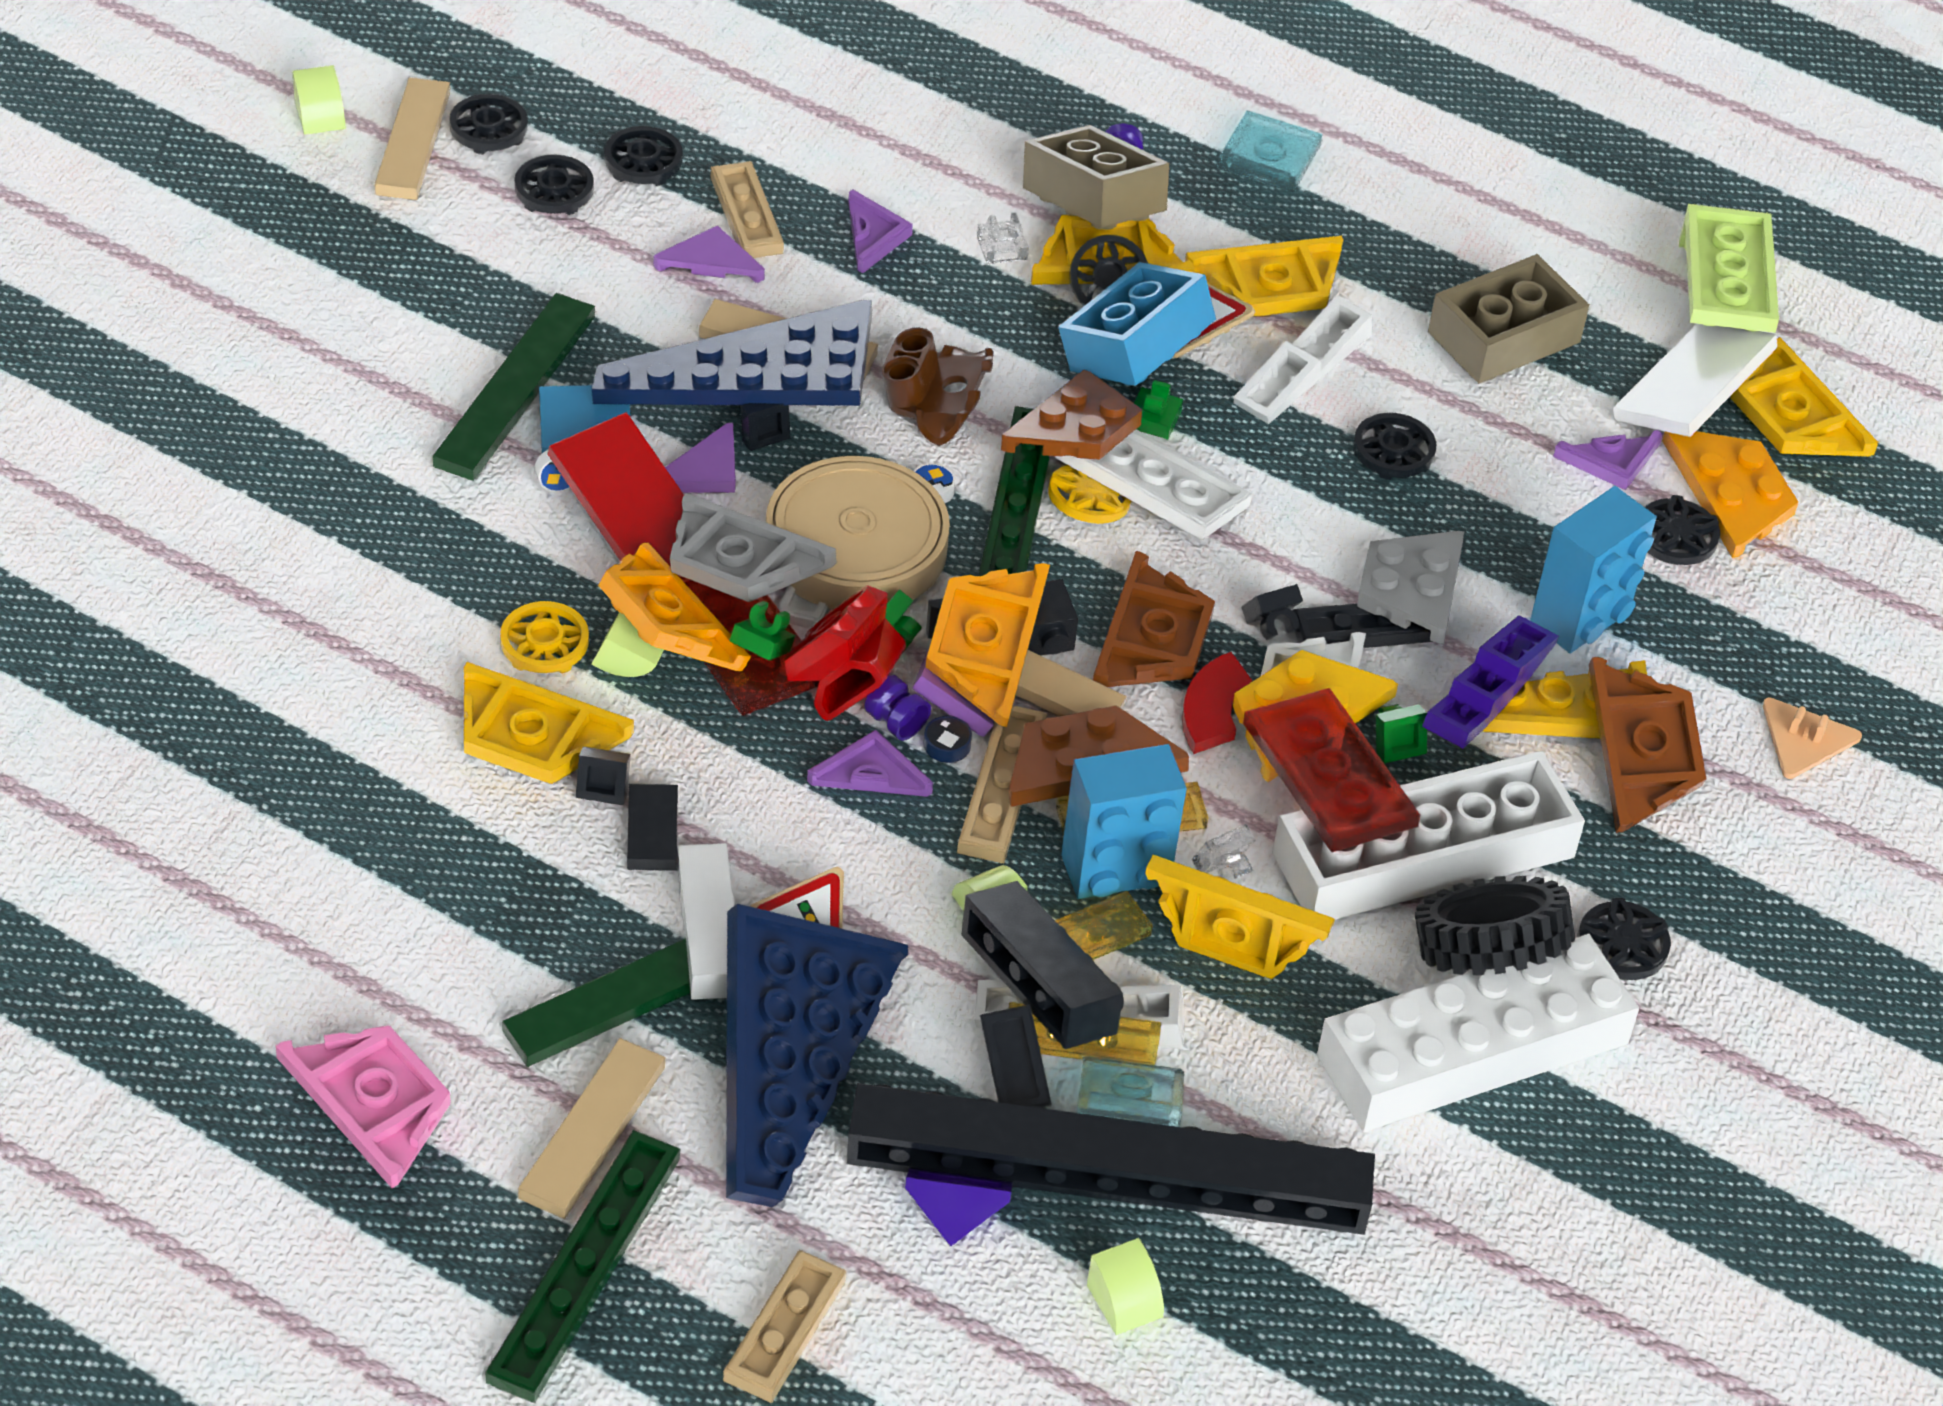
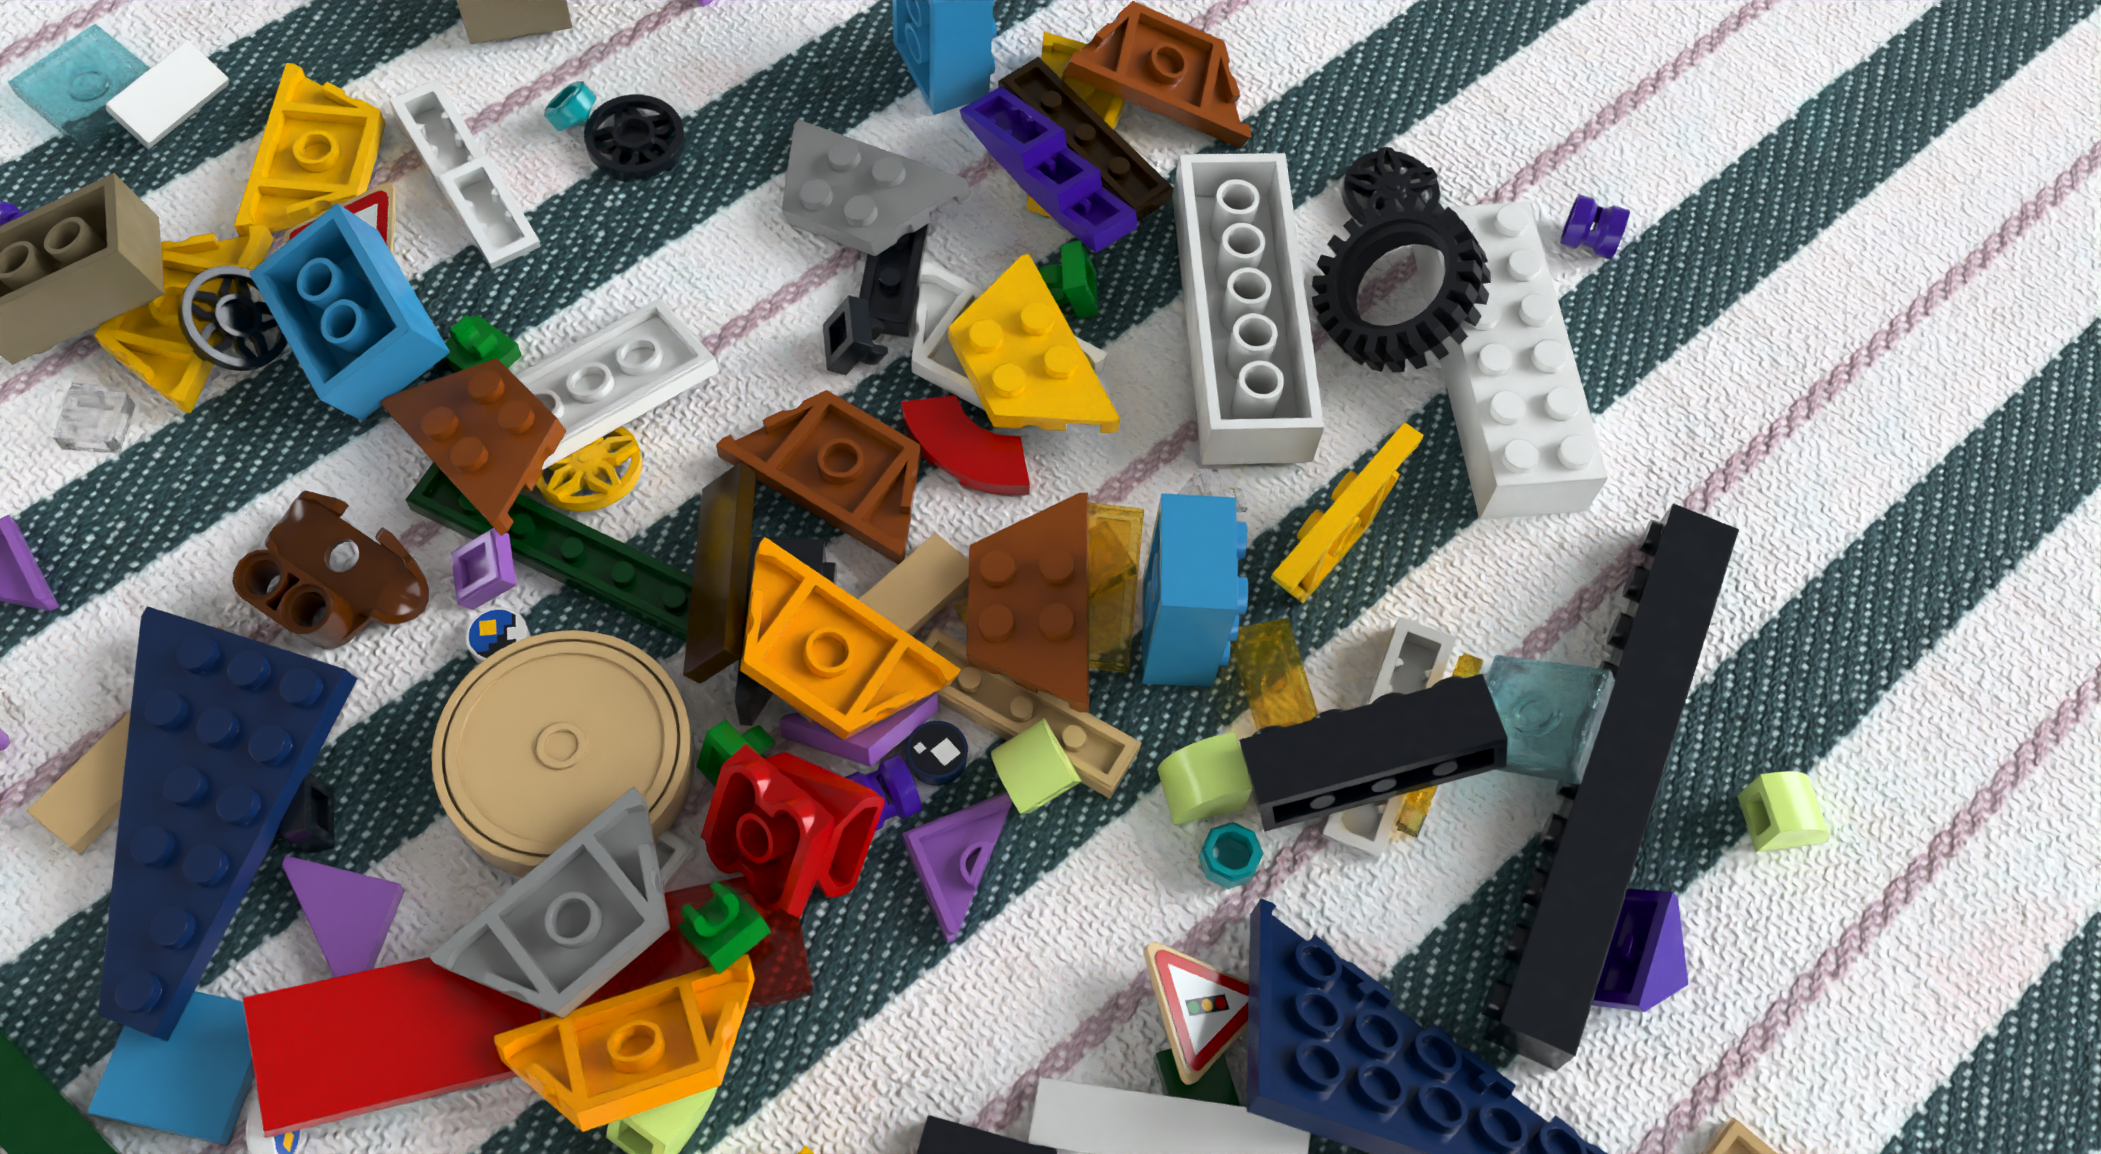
camera: 75 degrees left, 15 degrees up
(935, 922) = (1230, 855): none -> teal tile
(951, 787) = (1034, 767): none -> yellowish green brick
(978, 458) = (483, 569): none -> medium lavender tile
(1015, 1057) = (1476, 828): black tile -> none
(1058, 570) = (720, 574): none -> dark brown tile
(1281, 188) = (167, 94): none -> white tile
(1331, 770) = (1161, 355): clear red tile -> none
(1396, 399) = (570, 106): none -> teal tile
(1539, 701) = (1089, 136): none -> dark brown tile
(1663, 1088) = (1606, 230): none -> dark purple wheel

